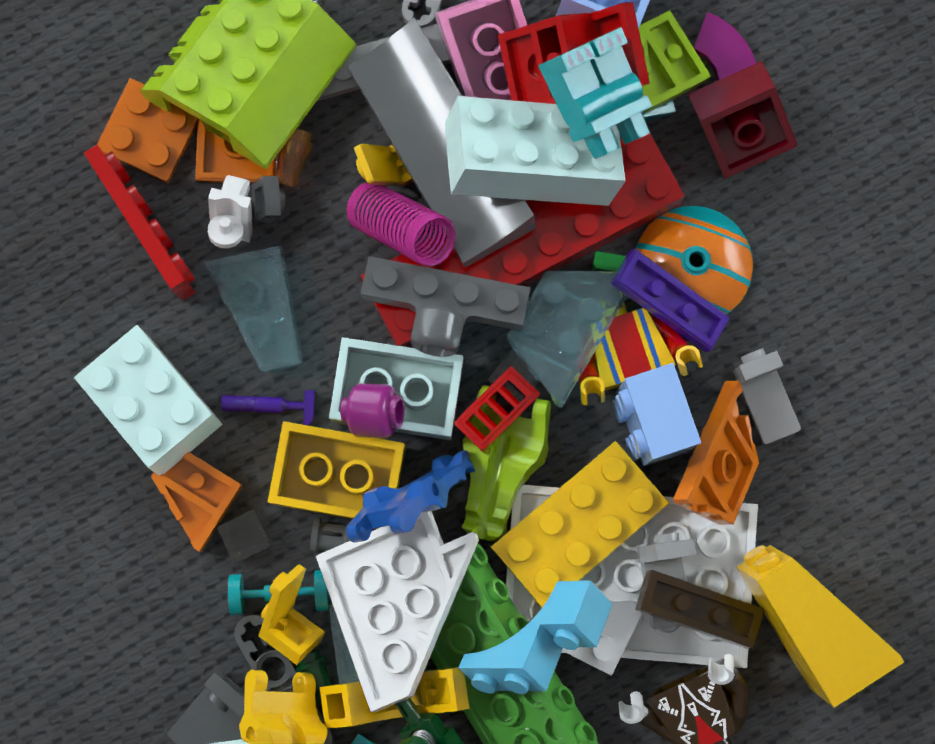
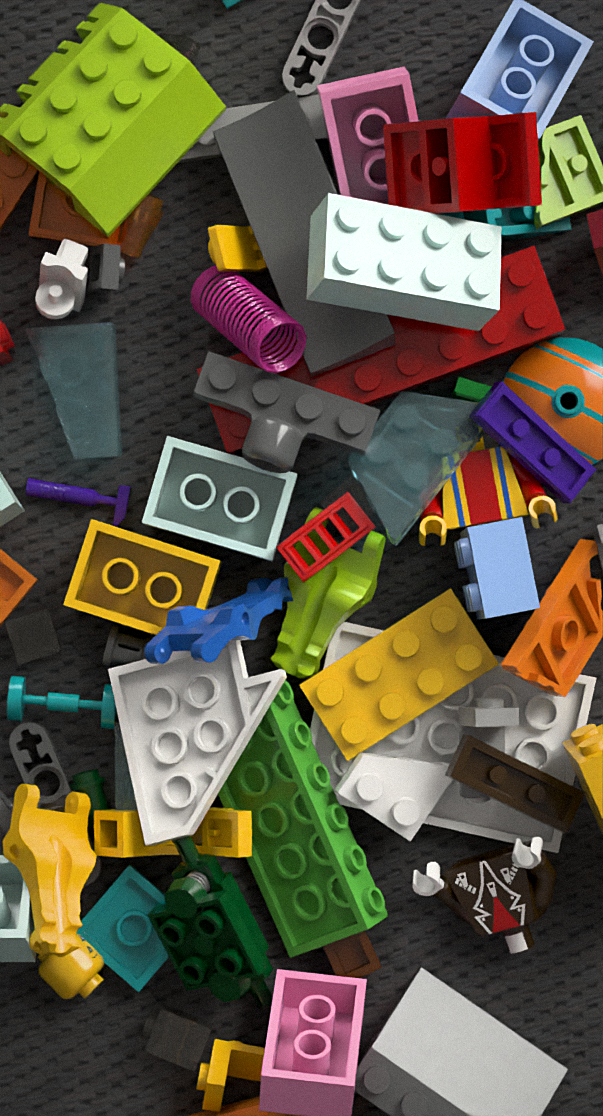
camera: 10 degrees right, 5 degrees up
(283, 625) = (65, 740): yellow bracket -> none
(373, 410) = (190, 522): magenta head -> none
(527, 660) = (320, 814): medium azure arch -> none
(597, 92) = (482, 210): teal hips -> none

